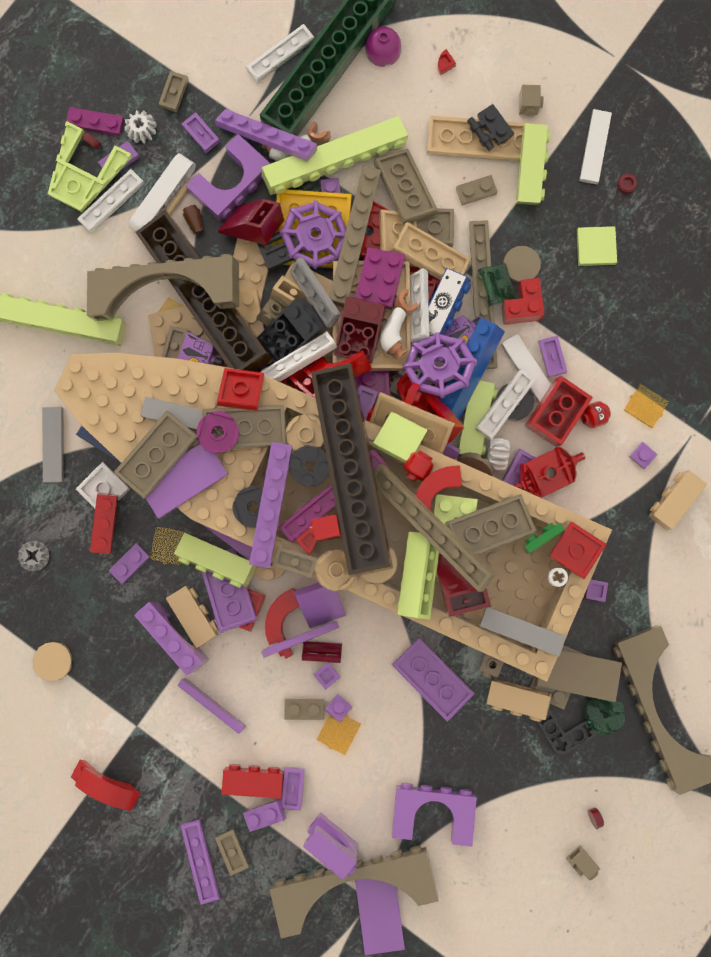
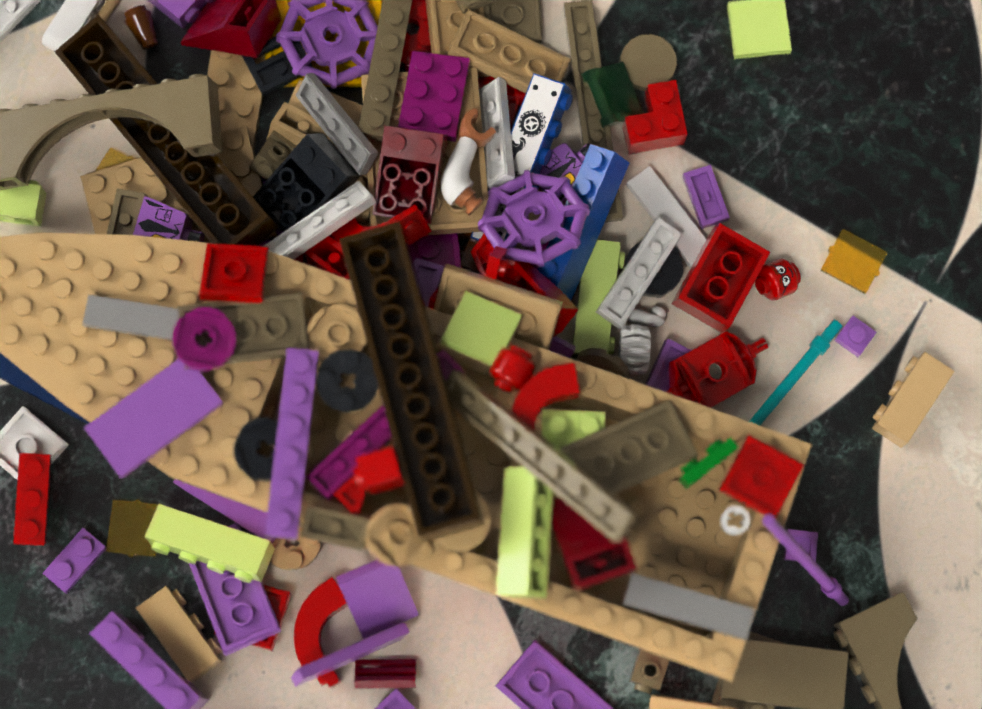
camera: 15 degrees left, 5 degrees down
(156, 455) = (111, 380): dark tan tile -> none
(506, 434) = (643, 318): none -> white arm
(612, 618) = (829, 585): none -> medium lavender bar
(617, 461) = (818, 346): none -> teal bar

